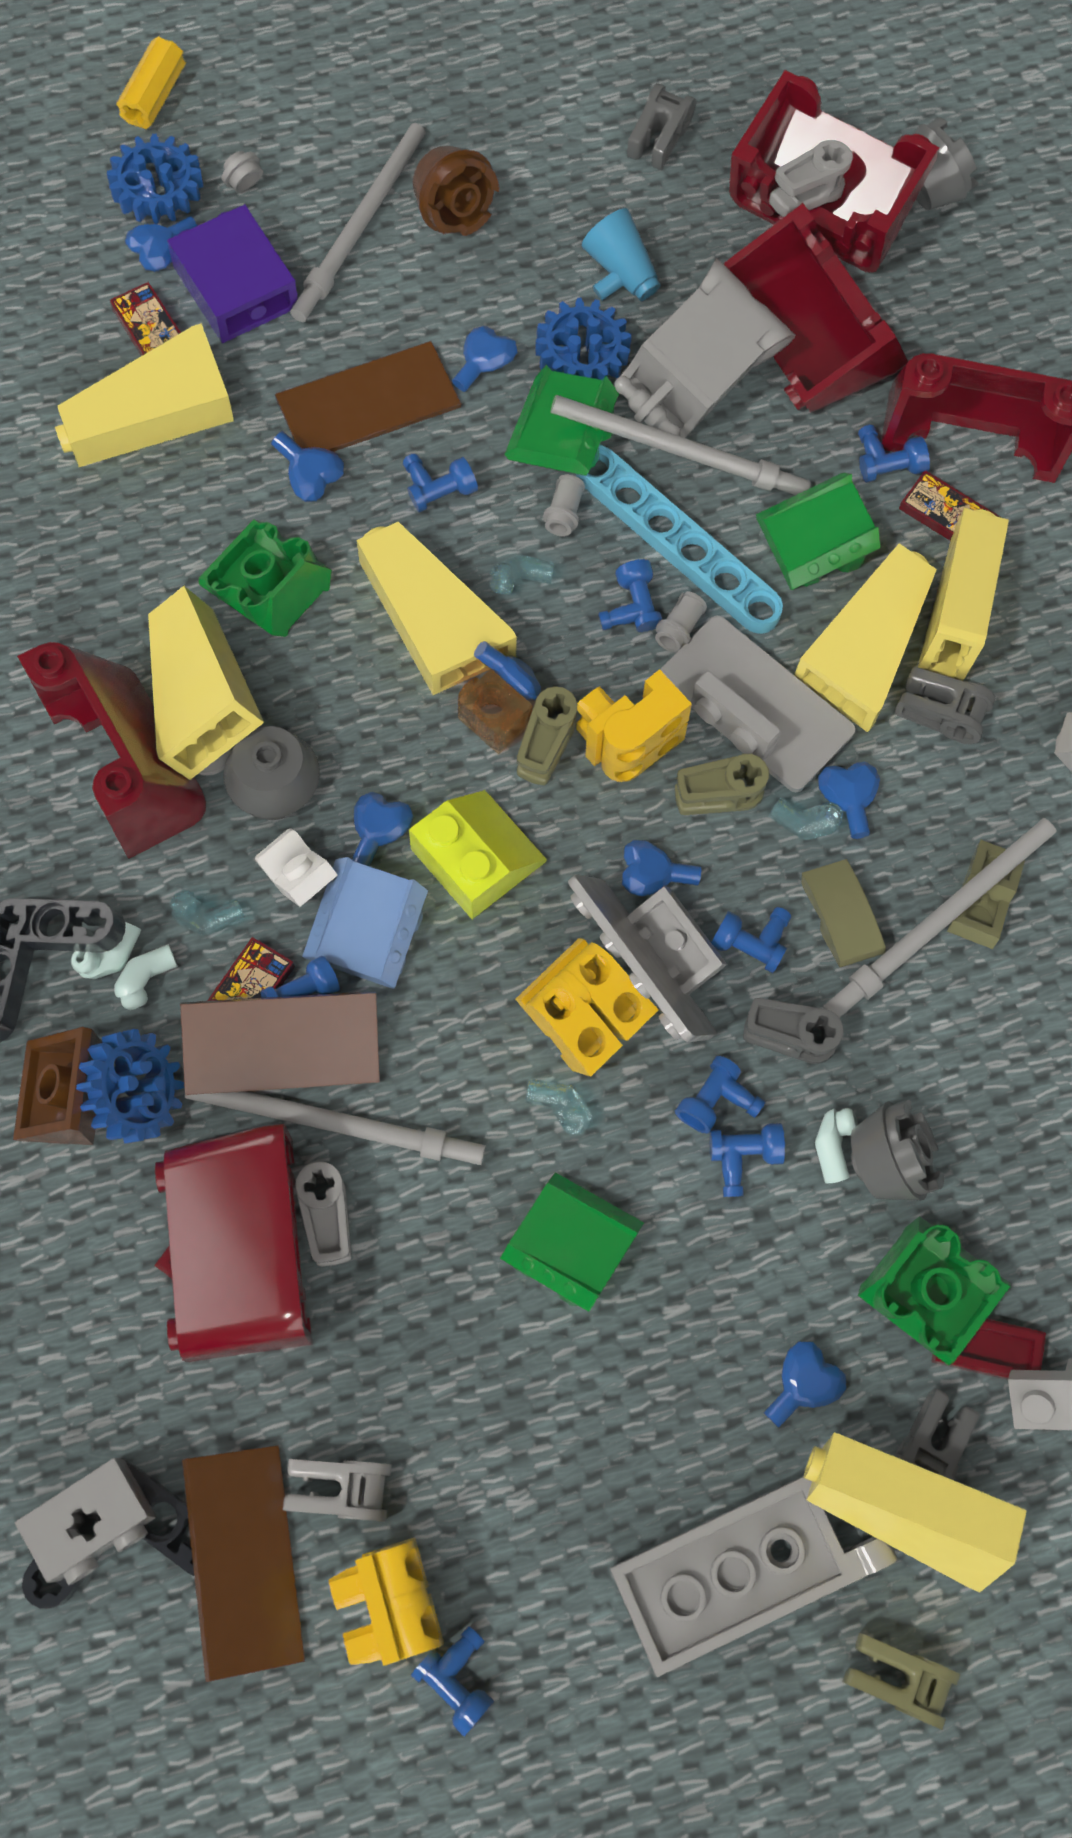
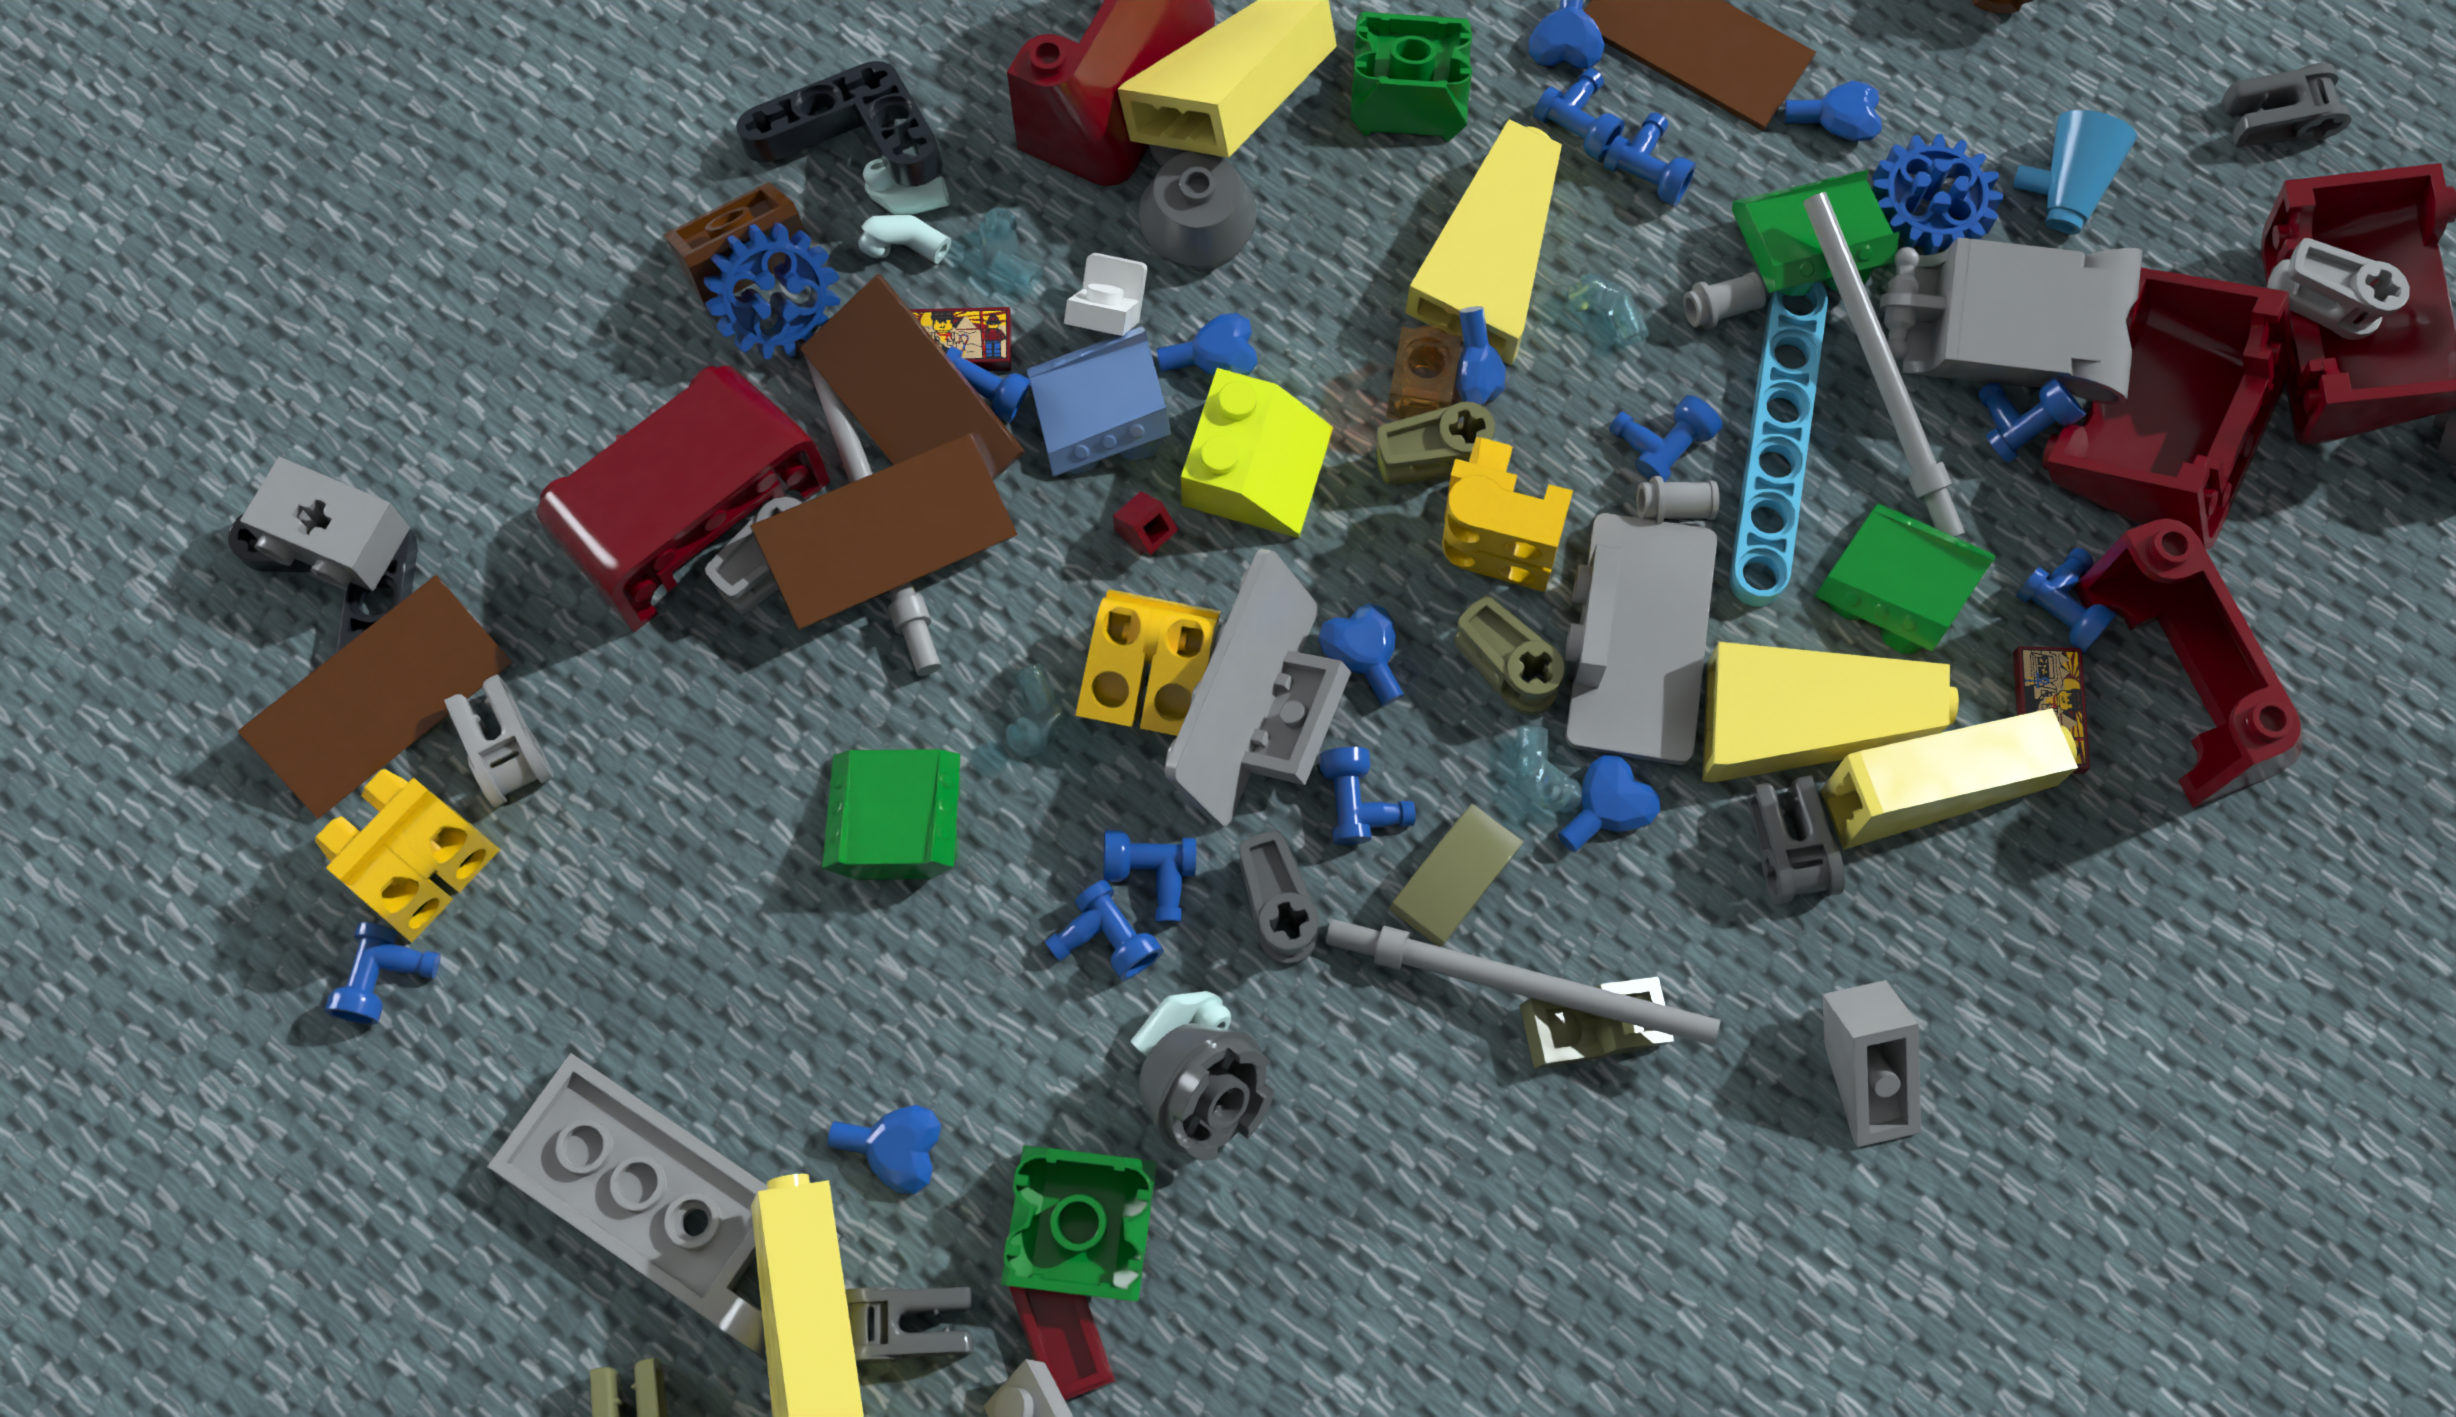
camera: 60 degrees right, 0 degrees up
(364, 507) = (1567, 113): none -> blue piece
(370, 1122) = (883, 531): none -> reddish brown piece
(476, 949) = (1135, 515): none -> dark red piece
(764, 409) = (2016, 430): none -> blue piece

